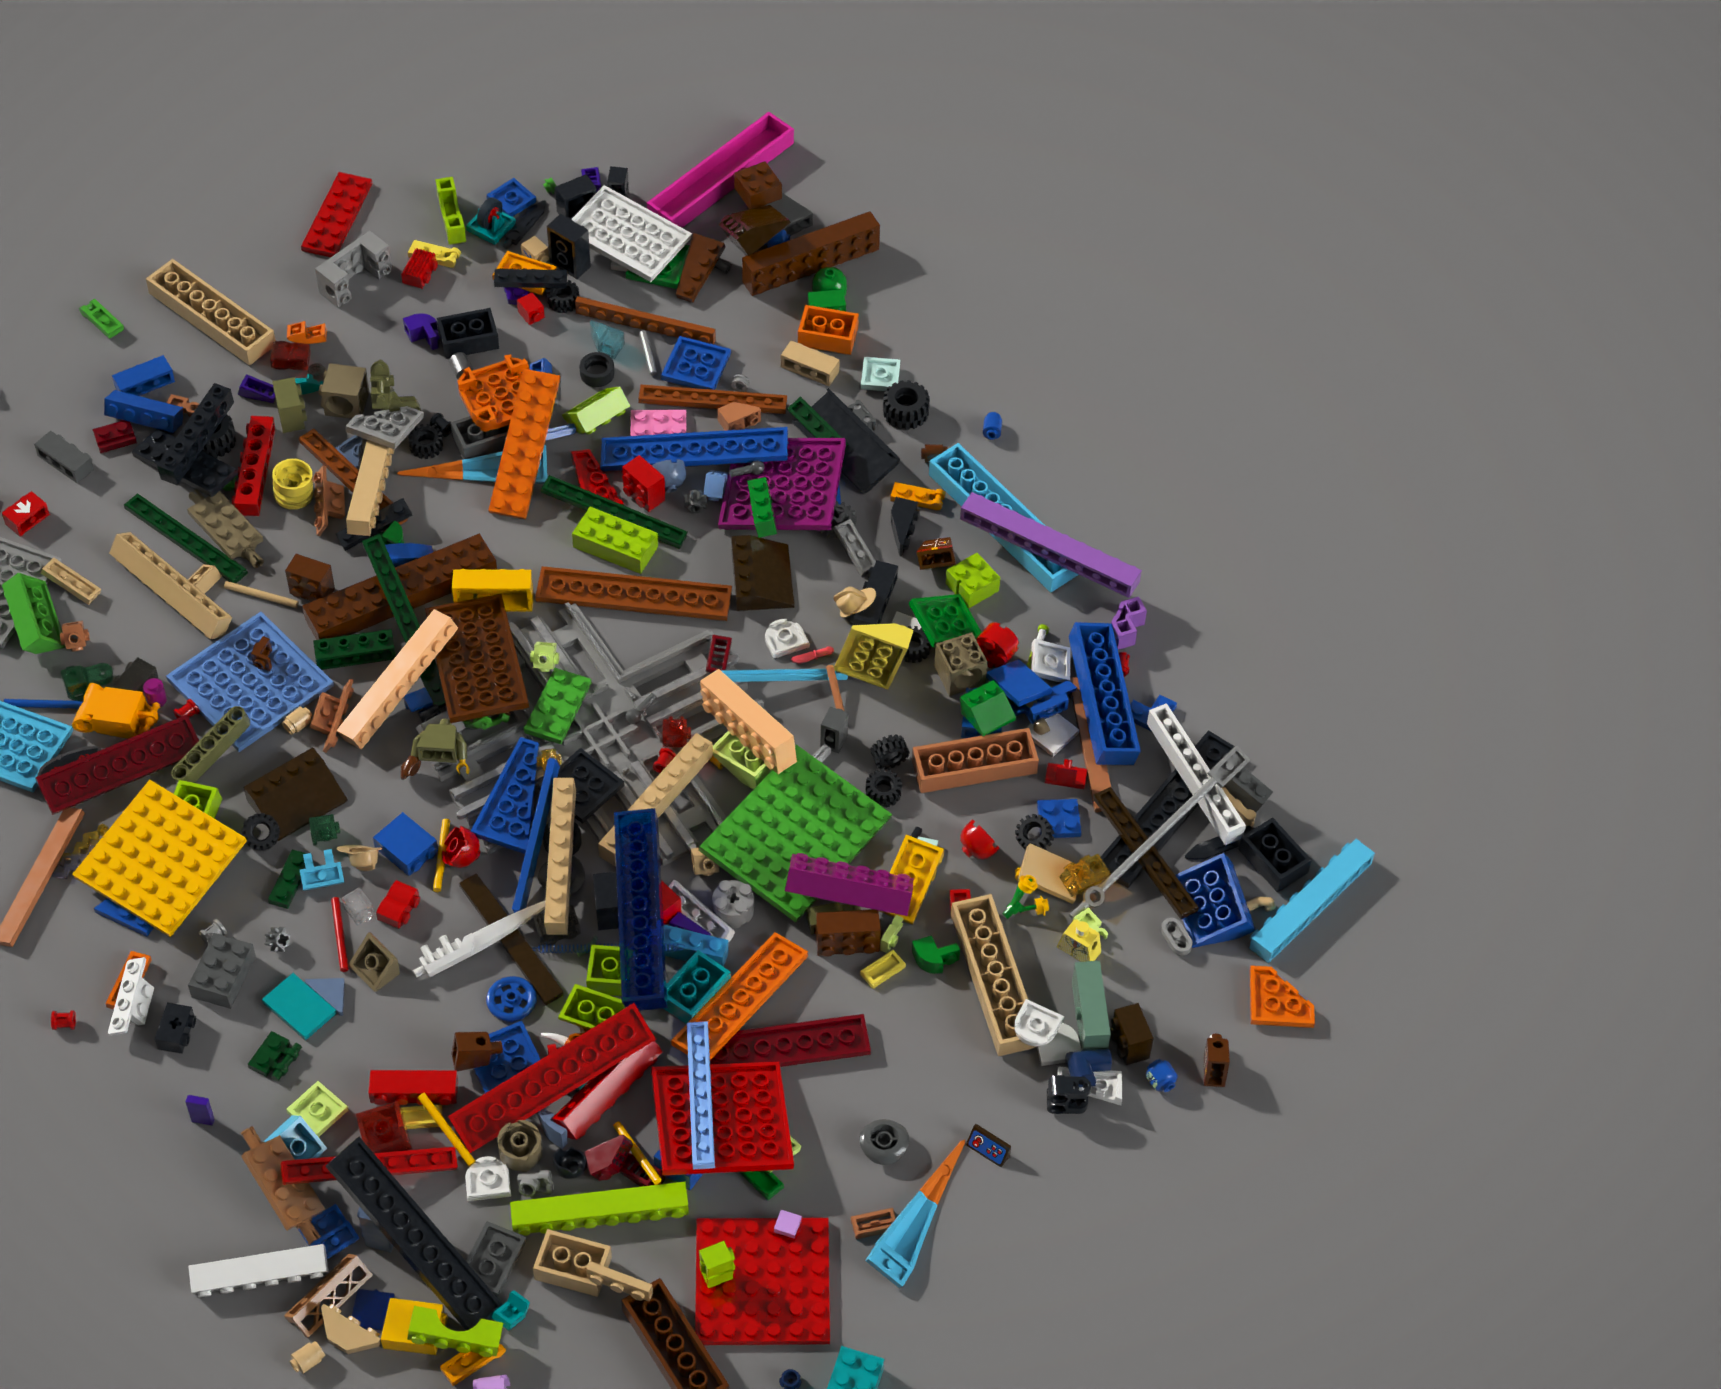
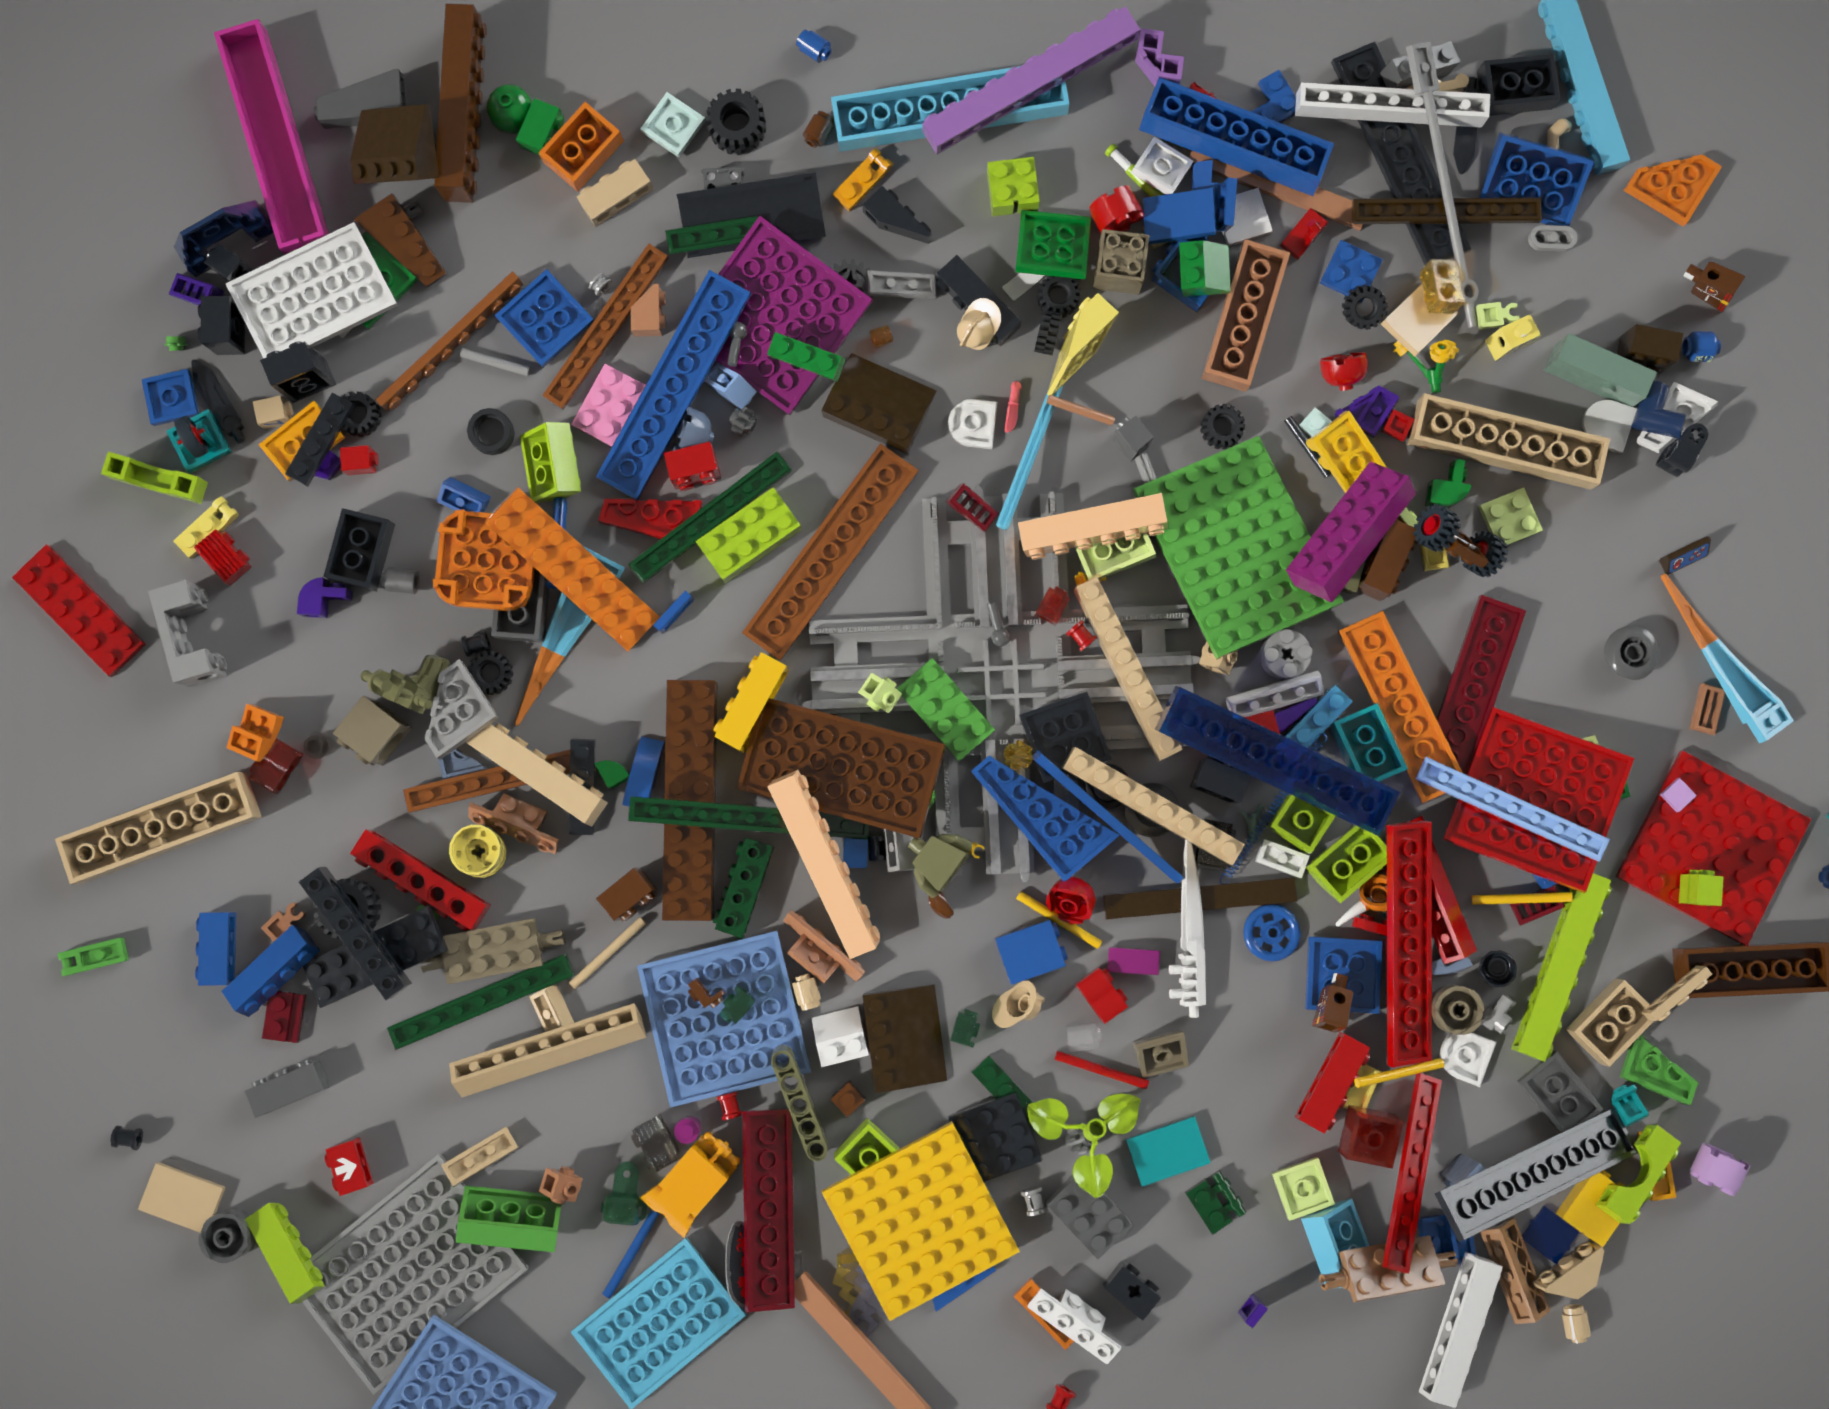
camera: 55 degrees left, 30 degrees up
(230, 779) = (848, 1098): none -> reddish brown brick
(249, 884) = (997, 1136): none -> black plate
(252, 382) = (301, 817): dark purple slope -> none
(264, 677) = (737, 1005): none -> clear green brick
(269, 752) = (840, 1036): none -> white slope
(270, 840) = (948, 1102): black tyre -> none
(283, 912) = (1117, 1111): none -> lime plant
(290, 404) = (353, 802): olive brick -> none
(308, 384) = (332, 769): teal slope -> none
(322, 875) = (1023, 1056): medium azure plate -> none
(330, 990) = (1167, 1111): sand blue tile -> none
(436, 915) = (1133, 961): none -> magenta slope
(532, 522) = (674, 612): none -> blue tile
(550, 1321) = (1652, 1070): none -> bright green wing
(572, 973) = (1282, 858): none -> white plate
(607, 339) = (452, 399): clear light blue slope -> none
(608, 1157) = (1514, 933): dark red slope -> none
(639, 162) = (195, 240): none -> dark blue wedge
(758, 185) = (327, 108): reddish brown brick -> none
(811, 554) = (881, 336): none -> clear orange hose
(889, 964) = (1439, 529): none -> black plate
(890, 751) = (1189, 396): black tyre -> none
(936, 553) = (962, 203): reddish brown torso -> none
(938, 1011) = (1511, 516): none -> yellowish green plate
(959, 876) = (1372, 409): none -> dark purple wing
(1036, 1024) = (1600, 436): white tile -> none
(1041, 726) = (1241, 225): dark tan hinge -> none

